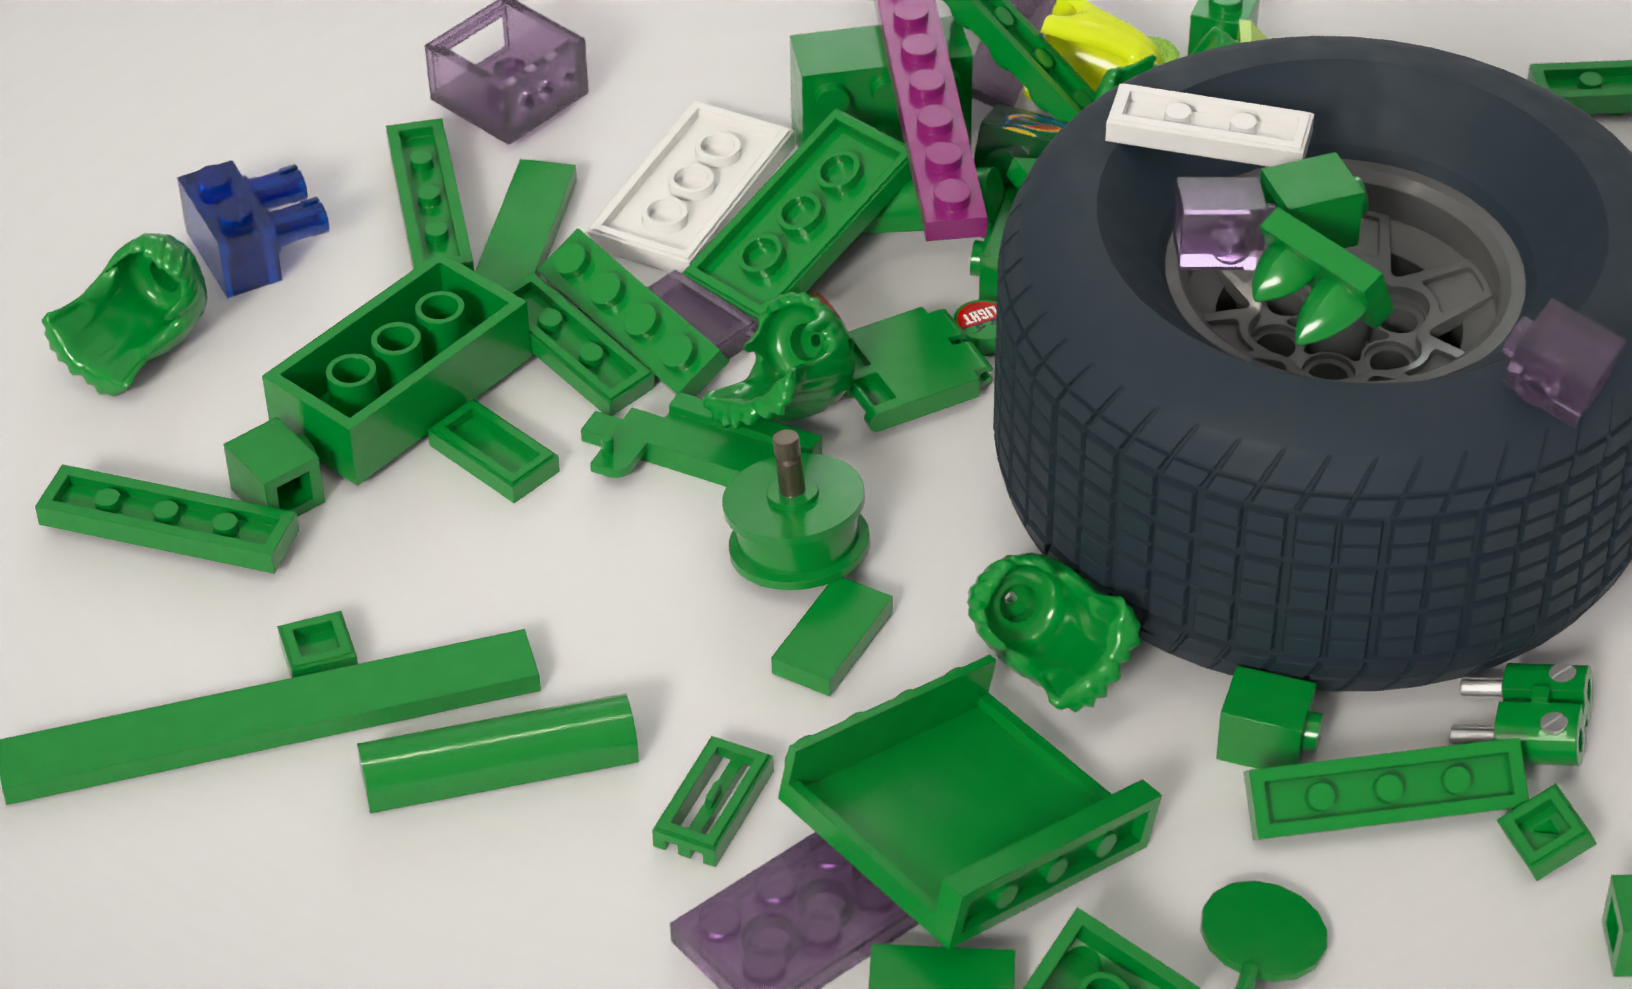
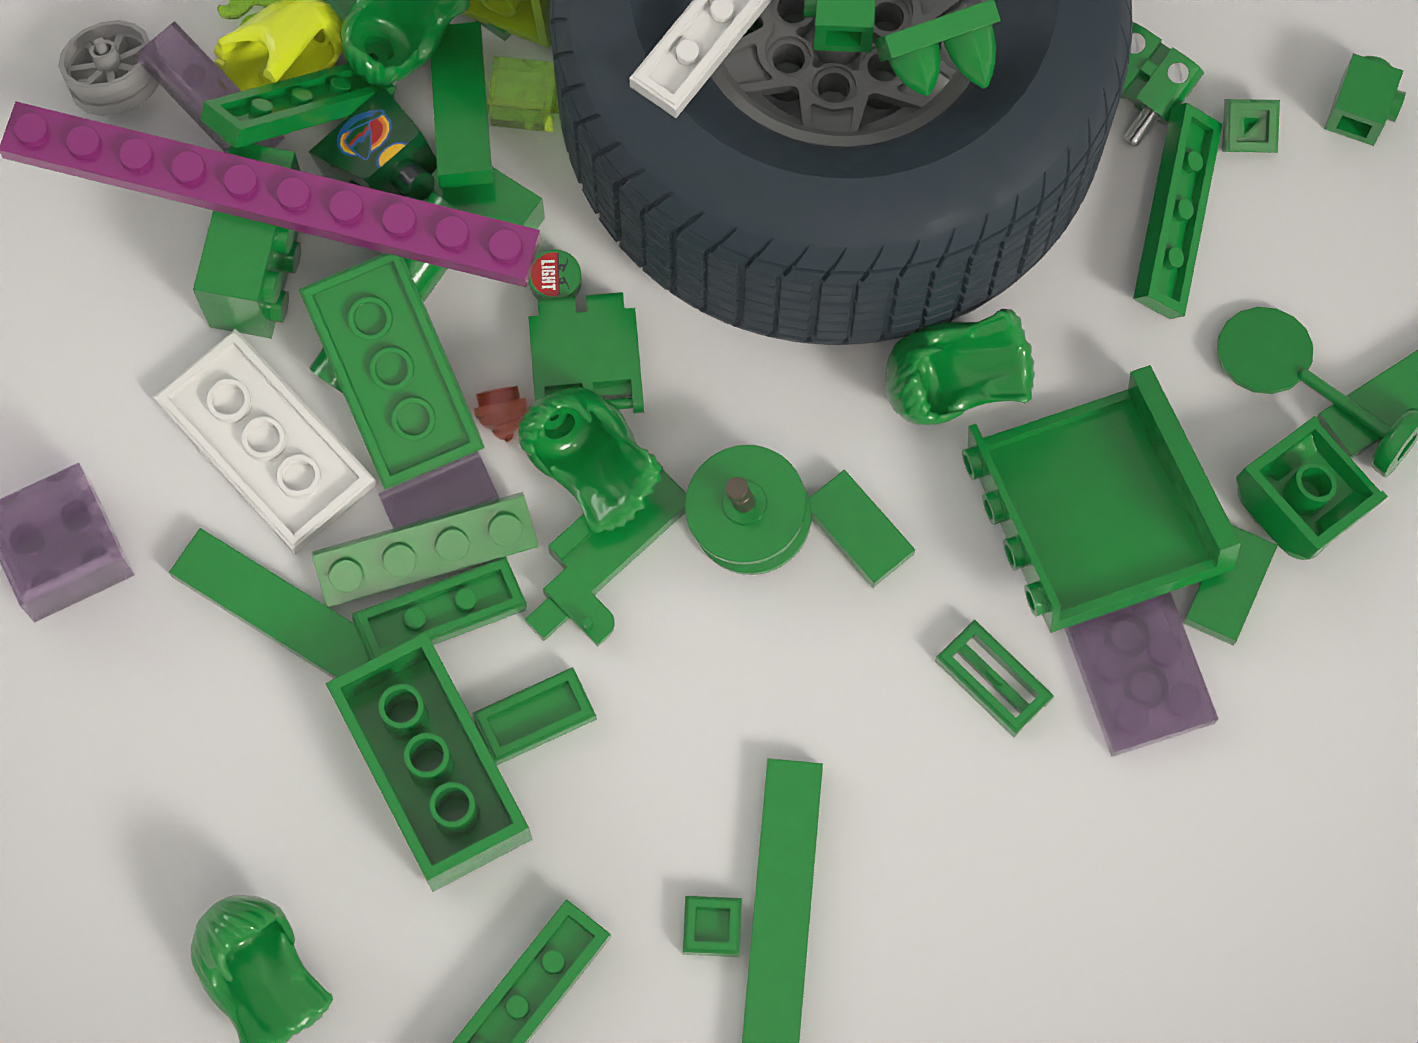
camera: 70 degrees left, 30 degrees up
(233, 223) = (164, 852): clear blue brick -> none
(275, 468) = (500, 902): green brick -> none
(428, 192) = (192, 668): green plate -> none
(498, 752) = (888, 821): green brick -> none
(1219, 222) = (845, 81): clear purple brick -> none
(1268, 720) = (1083, 259): green brick -> none

